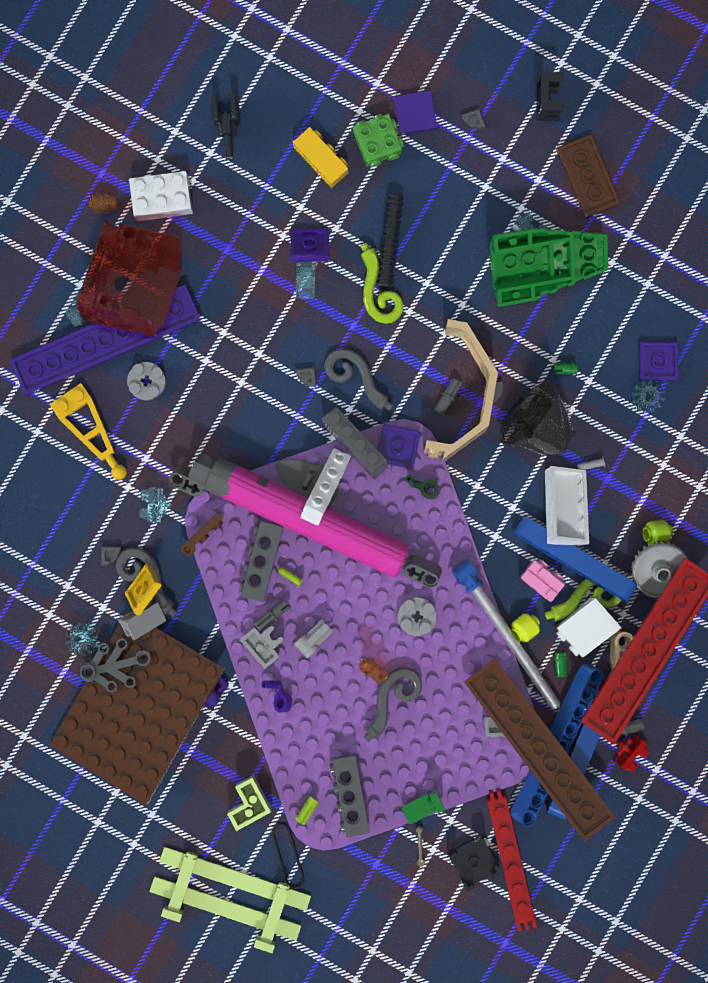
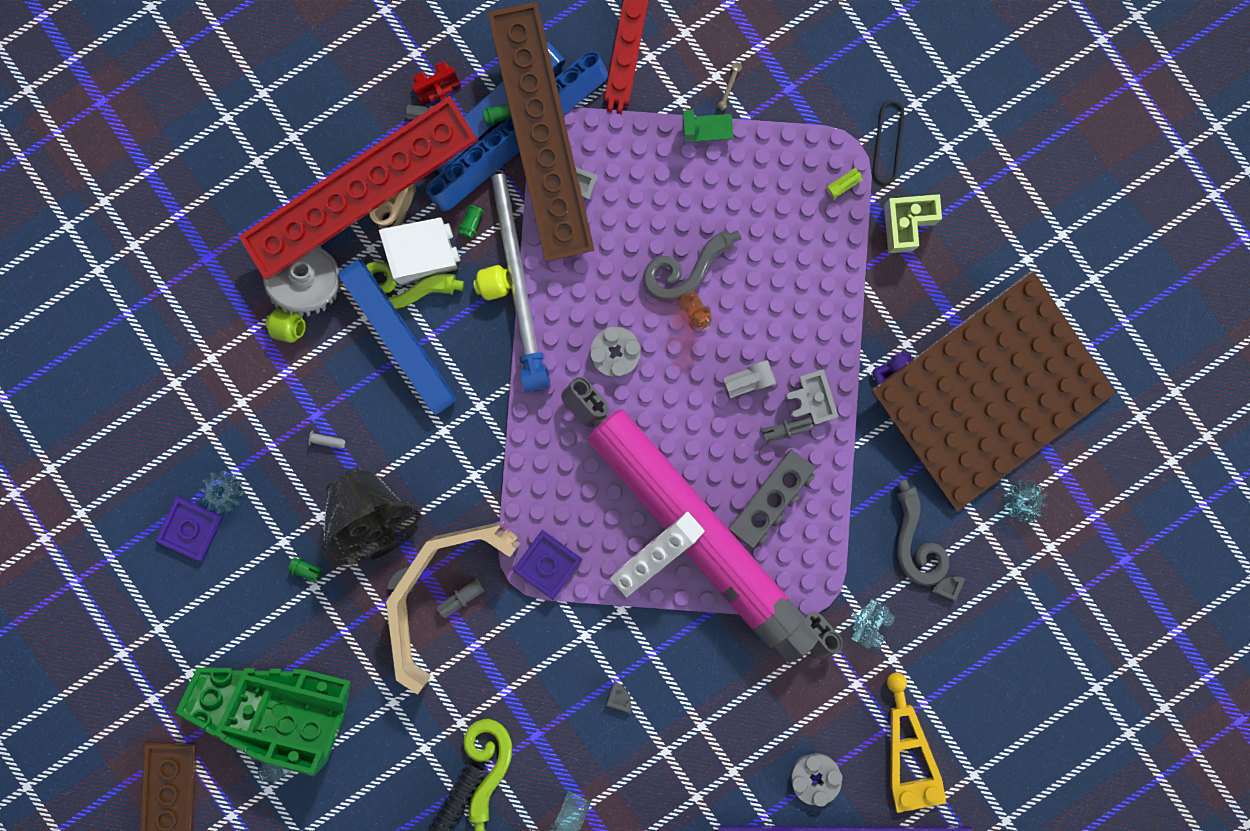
camera: 155 degrees left, 0 degrees up
(113, 665) = (1004, 452): dark grey plant -> none
(139, 625) = (944, 491): light grey hinge -> none
(143, 589) = (929, 528): yellow tile -> none
(181, 893) = (1031, 154): yellowish green fence -> none
(201, 535) = (831, 561): reddish brown hinge -> none
(282, 701) = (819, 322): dark purple plate -> none
(290, 576) = (744, 466): lime piece -> none
(301, 476) = (679, 580): dark grey shield -> none
(355, 443) = (597, 592): dark grey brick -> none
(359, 825) = (796, 139): dark grey brick -> none
(374, 395) = (549, 643): dark grey plant -> none
(423, 487) = (537, 502): dark green plate -> none
(473, 862) = (675, 40): black panel -> none
(542, 580) = (447, 329): bright pink brick -> none
(566, 506) = (378, 403): white slope -> none
(577, 748) = (496, 114): none -> green pin

